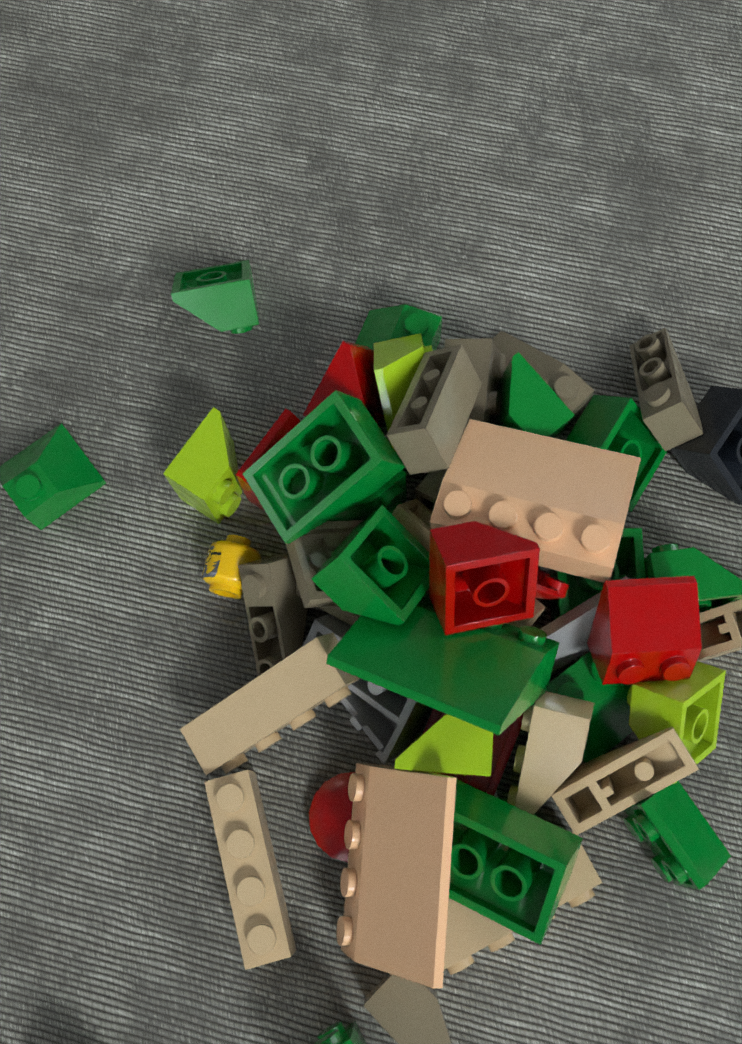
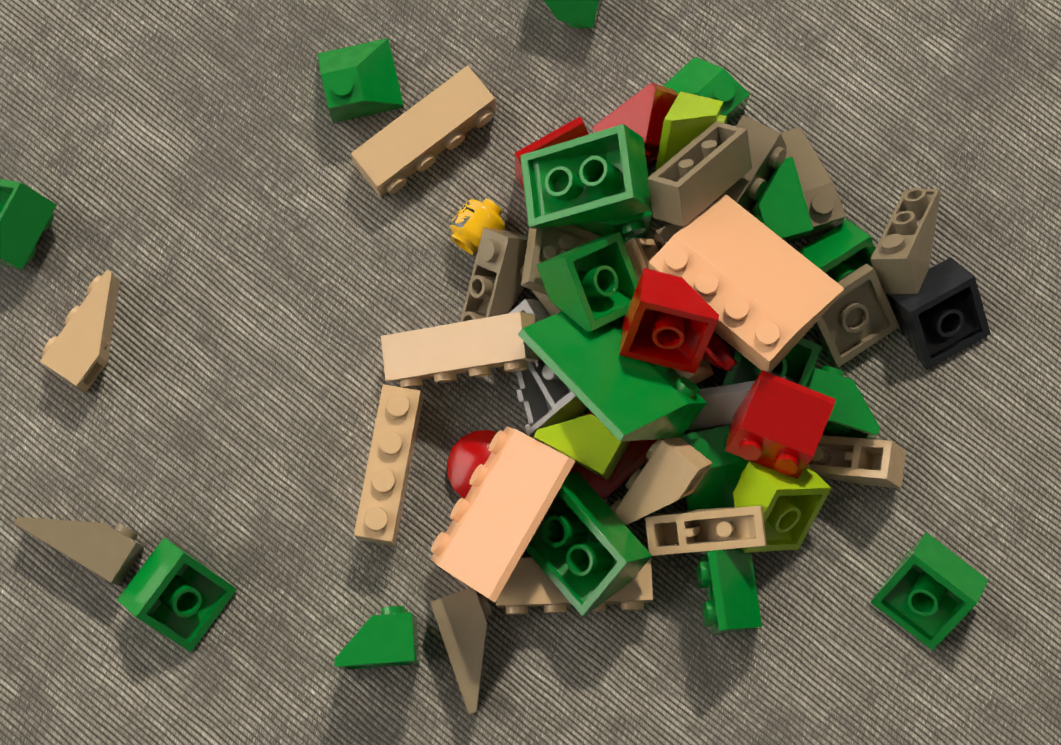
camera: 20 degrees right, 5 degrees up
(131, 501) = (424, 132): none -> tan brick
(207, 469) = (493, 137): lime slope -> none
(659, 484) = (856, 318): none -> dark tan plate

